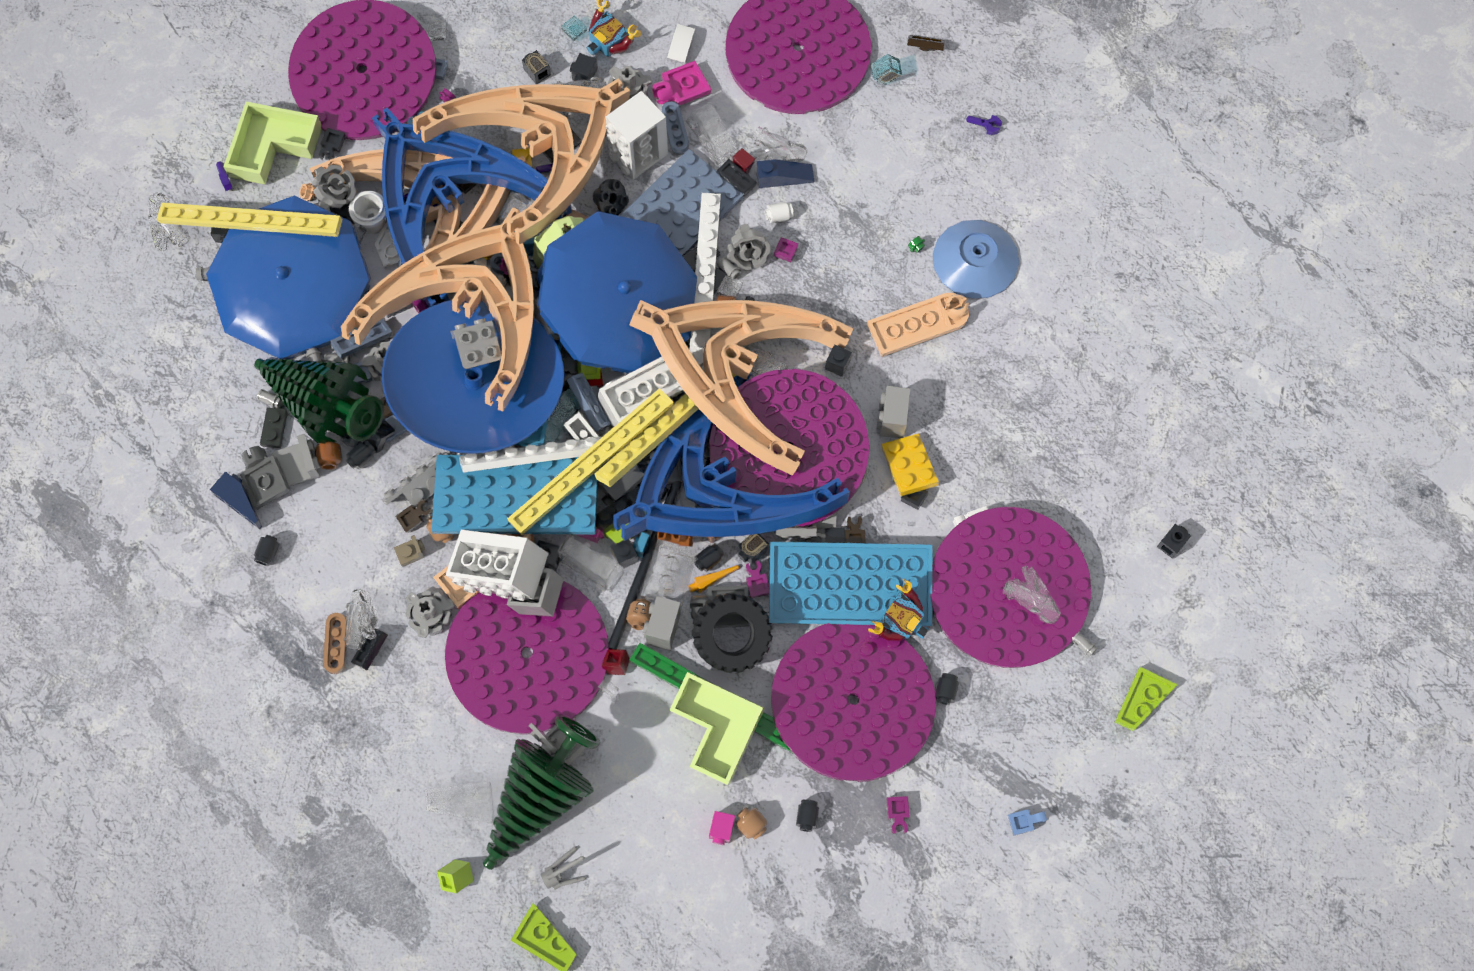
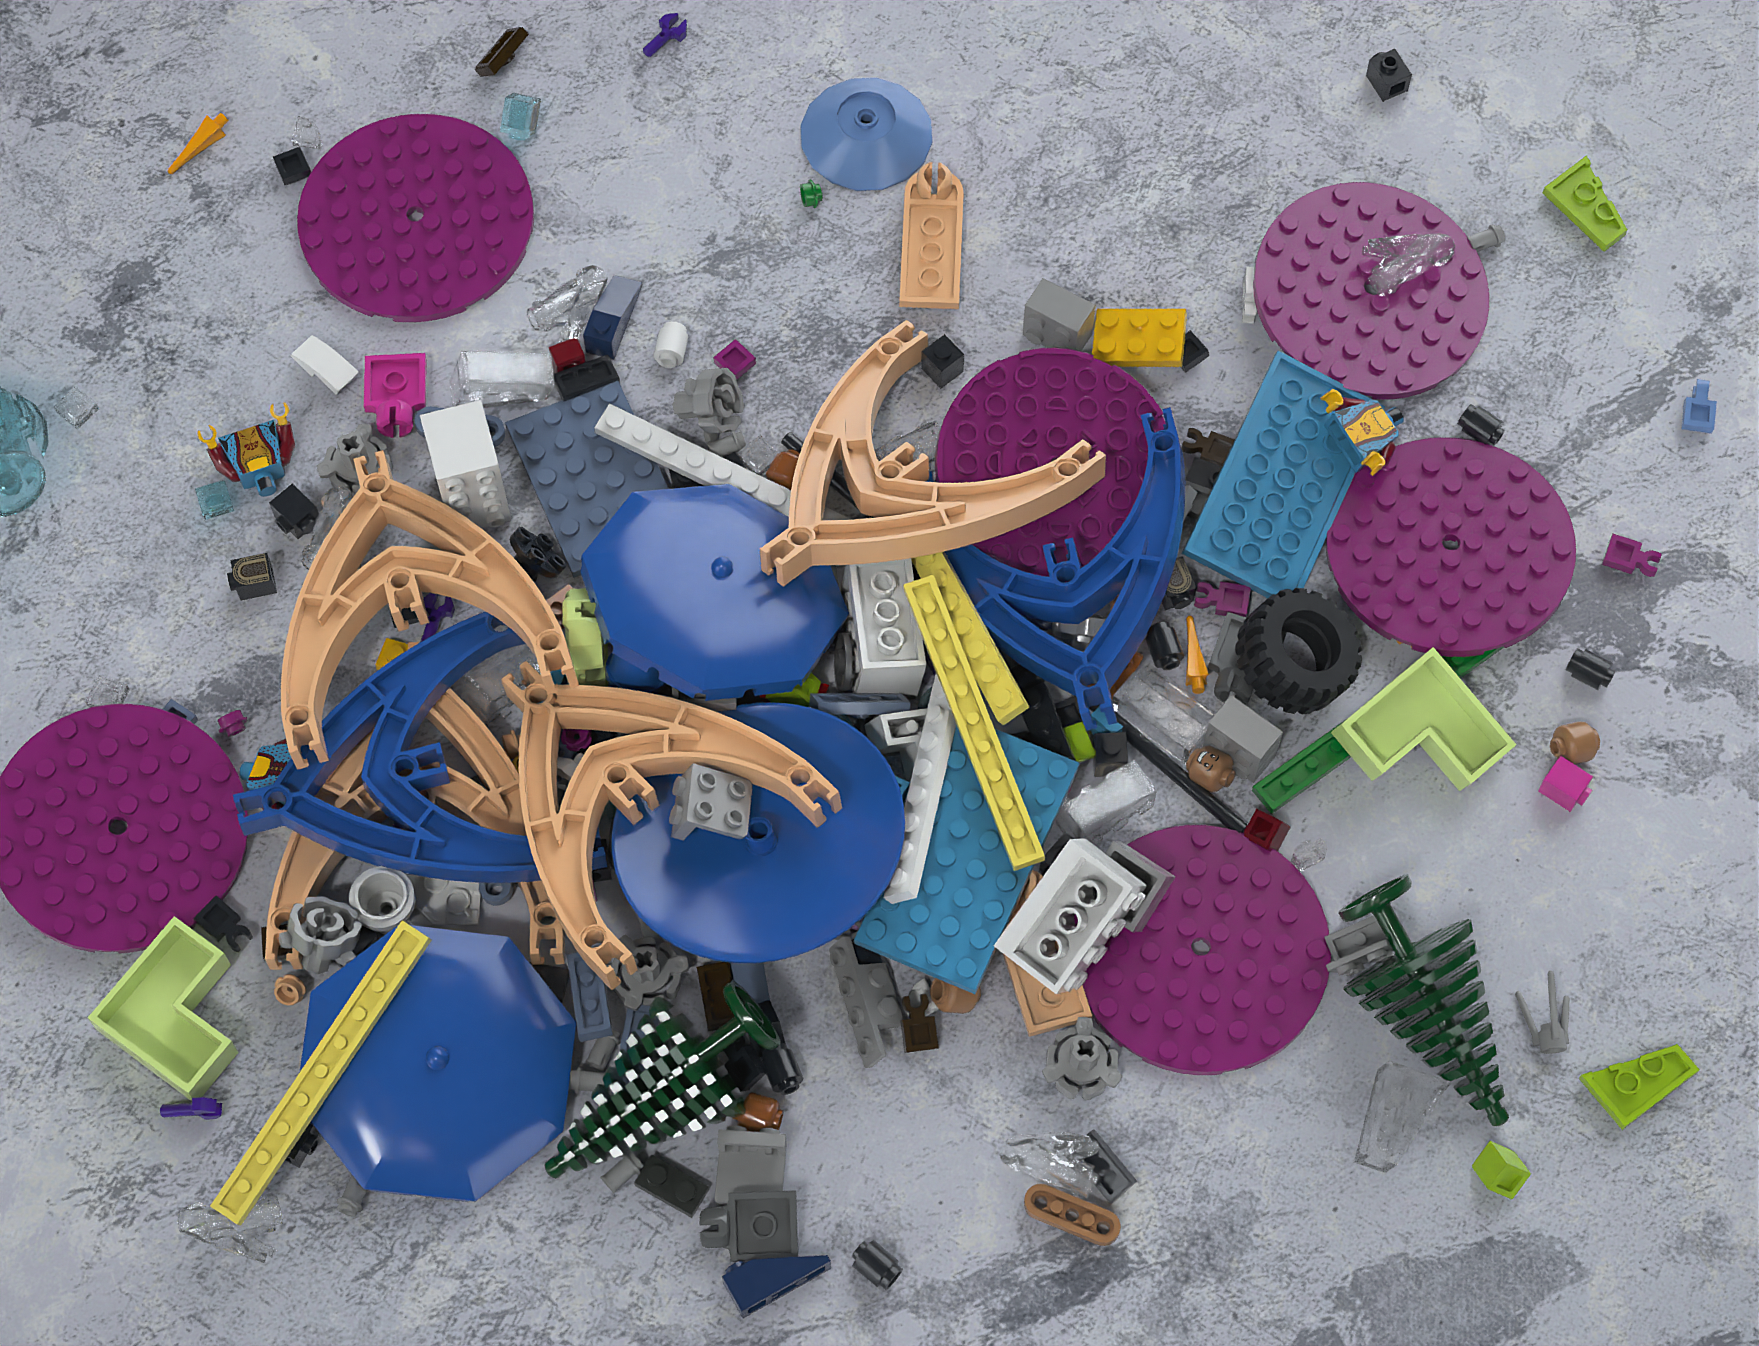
camera: 65 degrees left, 5 degrees down
(410, 551) = (970, 1053): dark tan bracket -> none

